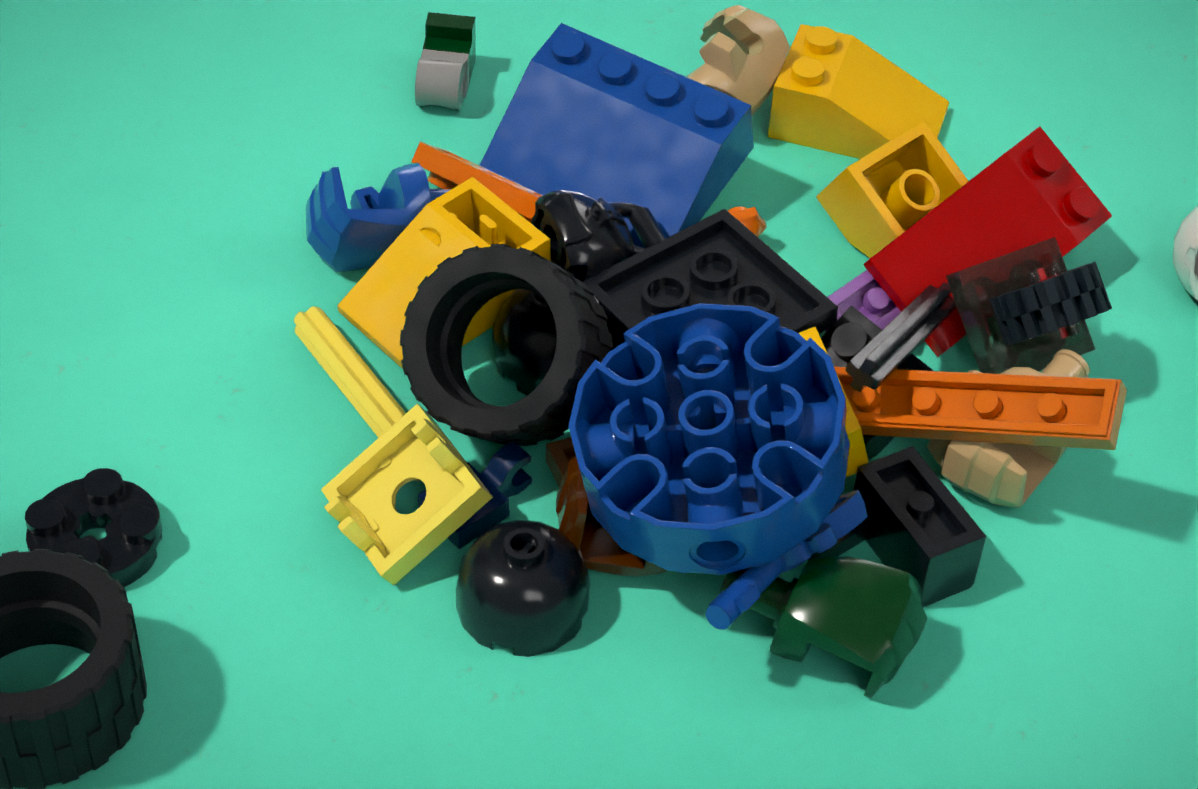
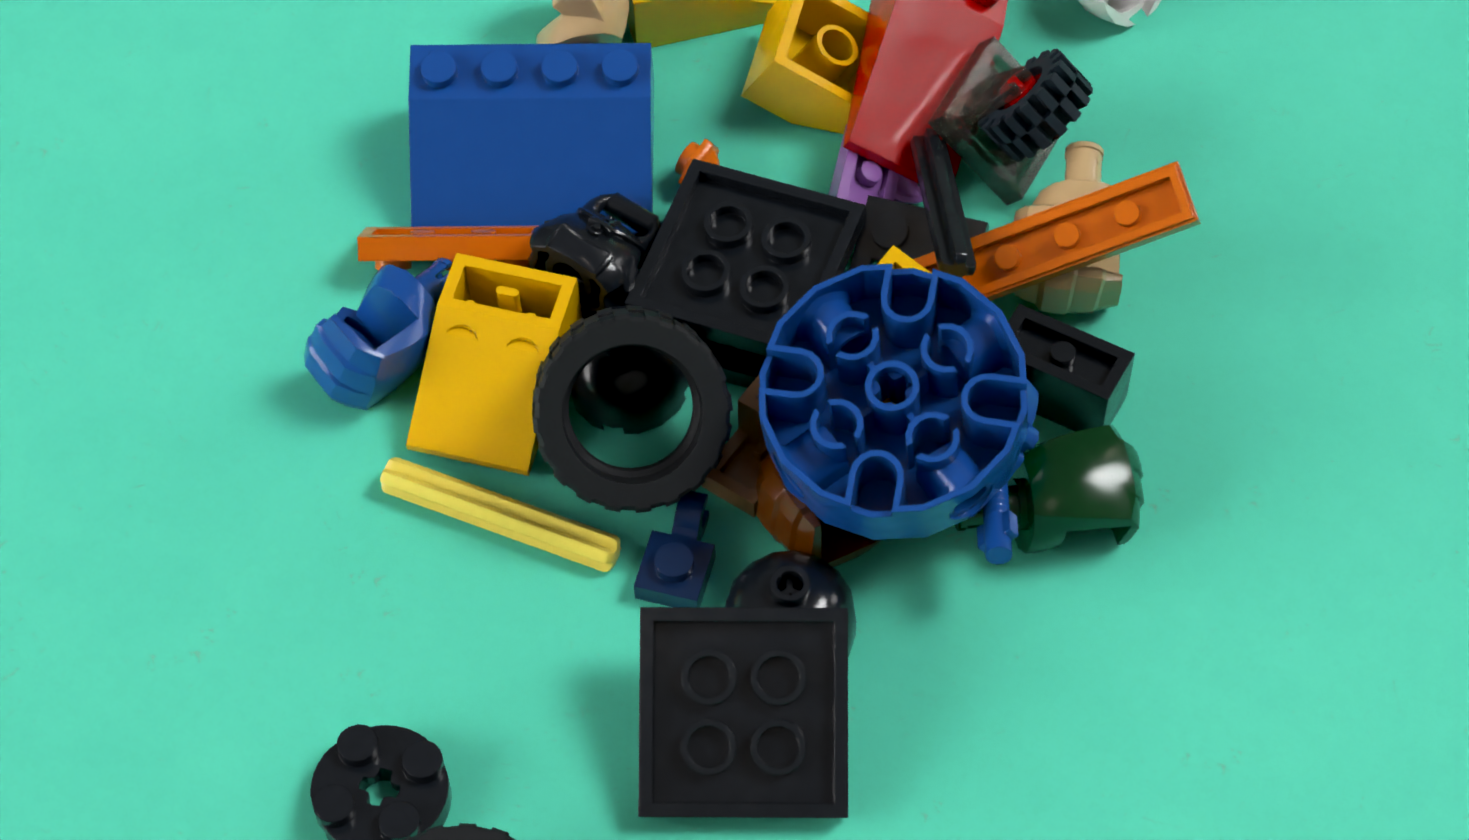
camera: 30 degrees left, 10 degrees up
(367, 488) = (606, 555): light yellow piece -> none
(409, 627) = (743, 712): none -> black plate
(446, 60) = (292, 132): leg -> none

